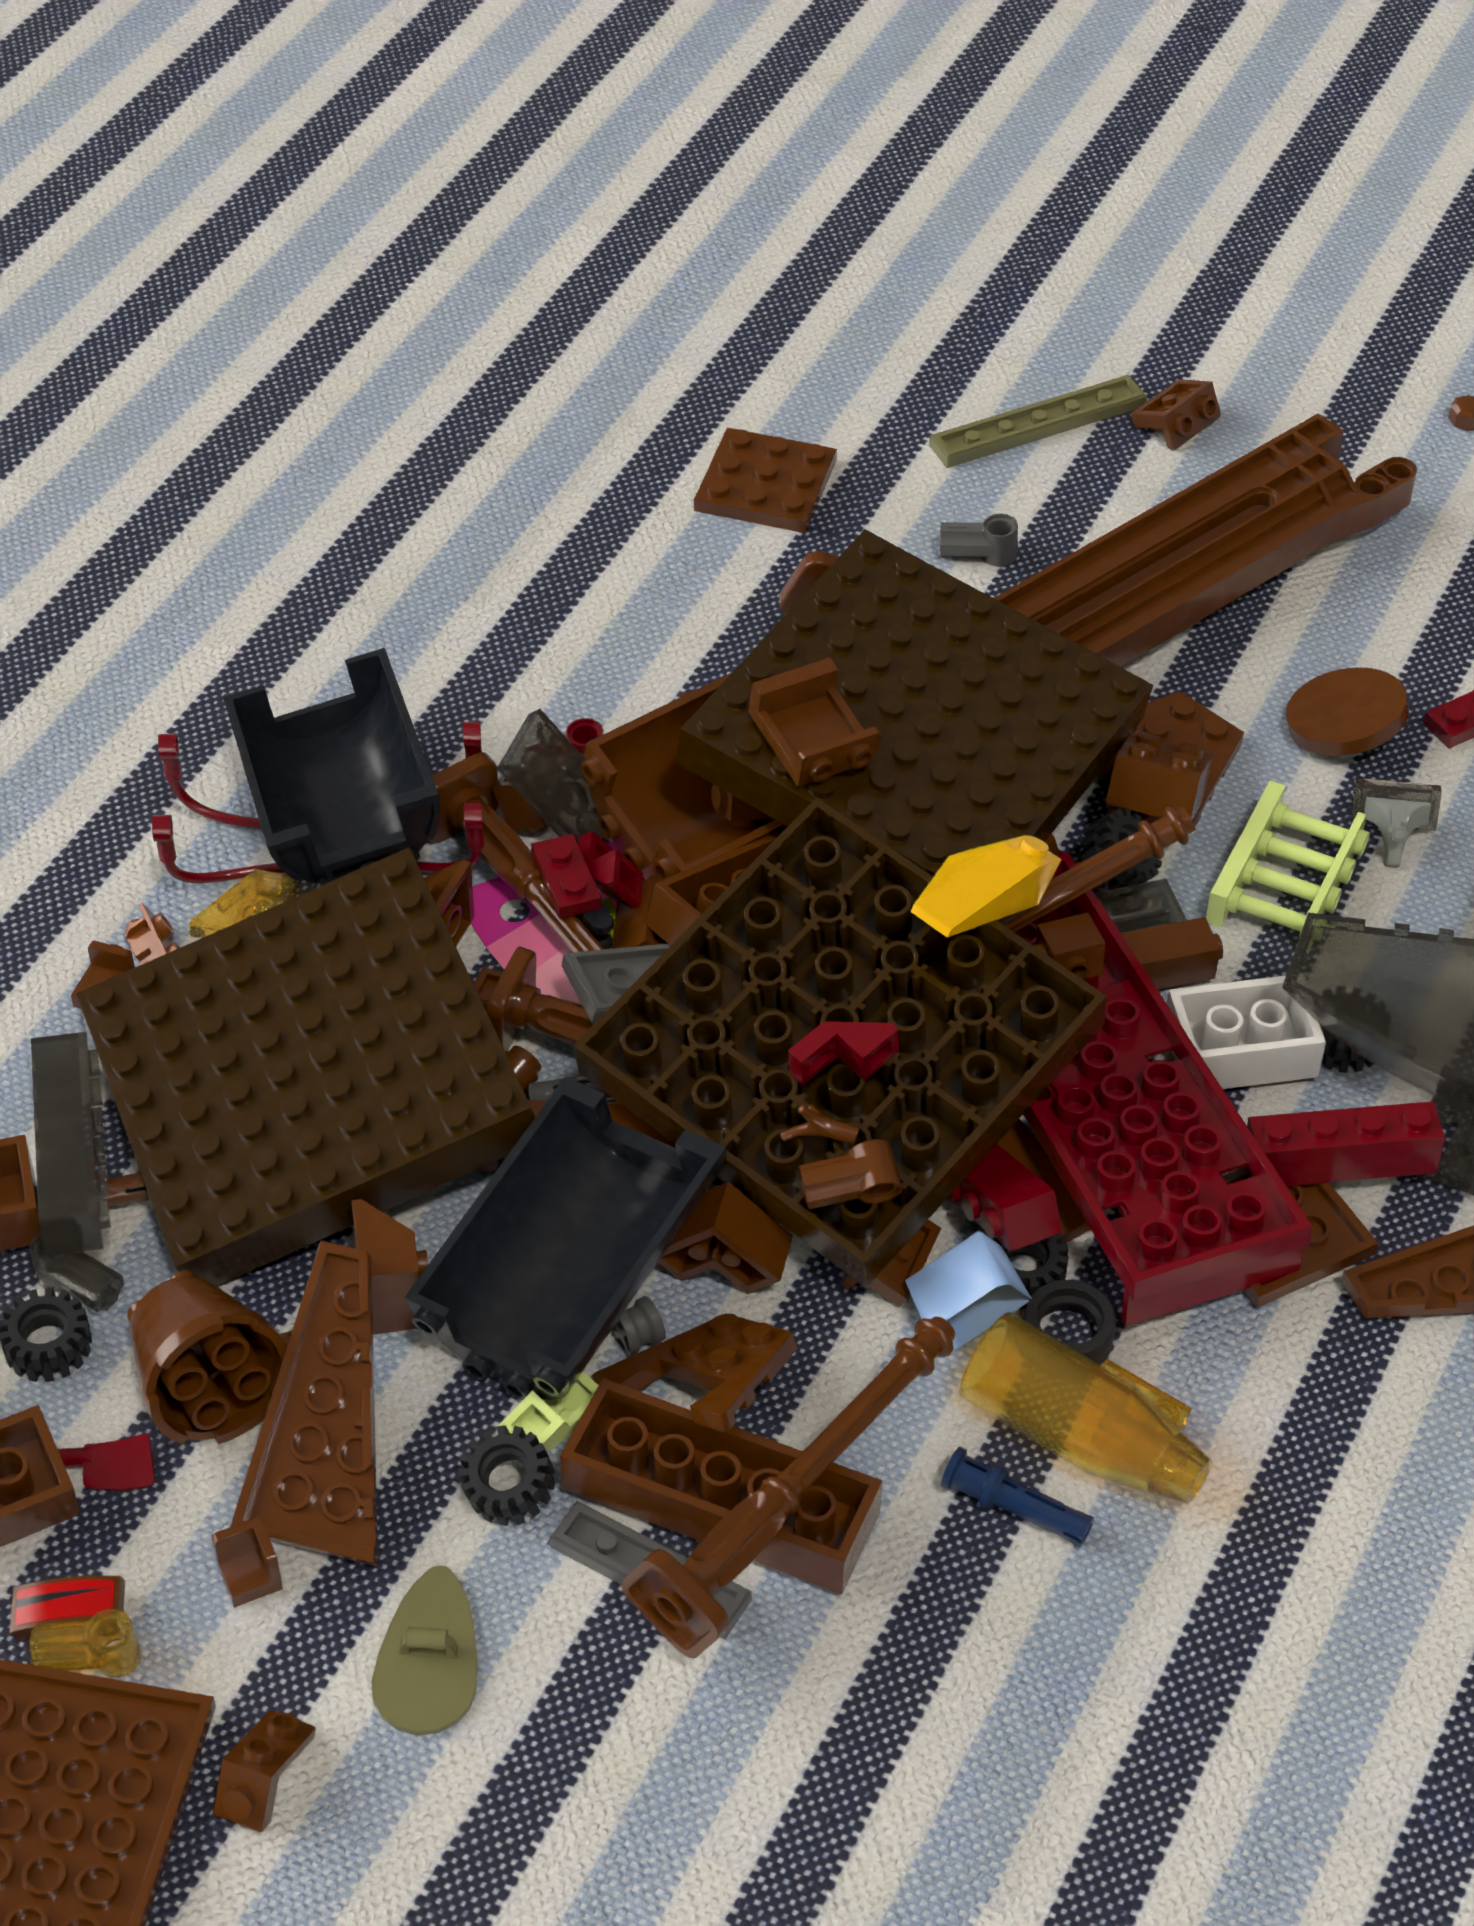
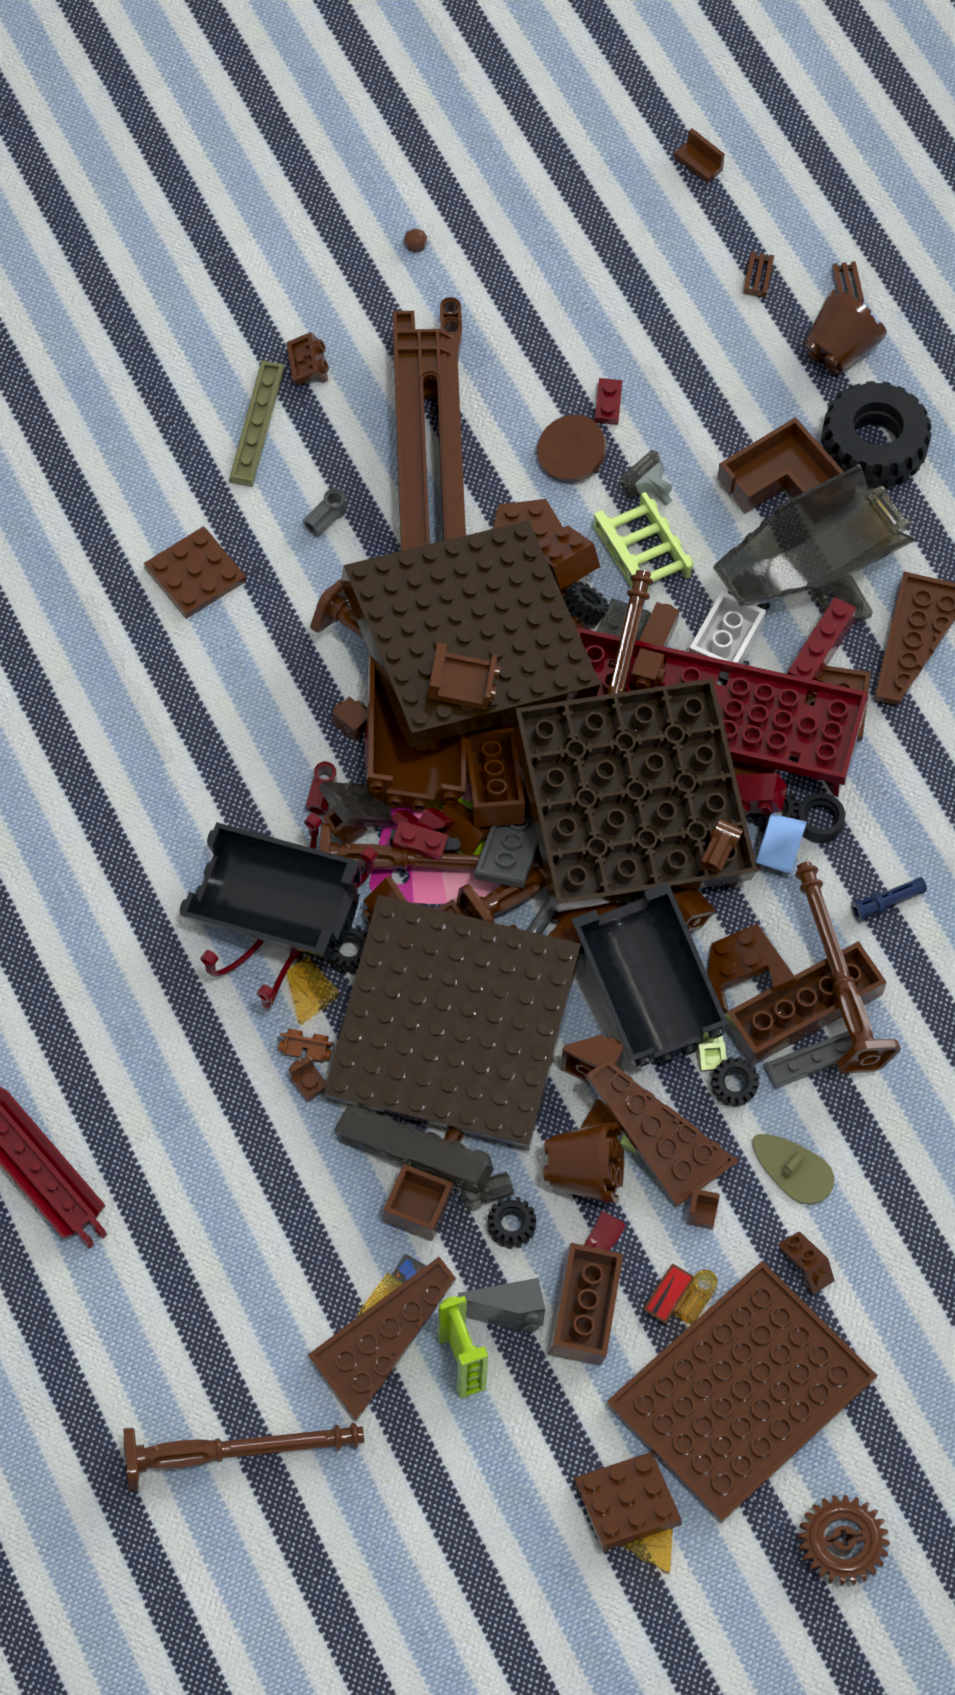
camera: 55 degrees left, 15 degrees up
(822, 1126) = (685, 836): reddish brown bar -> none
(858, 1044) = (664, 794): dark red slope -> none
(986, 884) = (617, 677): yellow wedge -> none
(1085, 1410) = (873, 842): clear yellow piece -> none

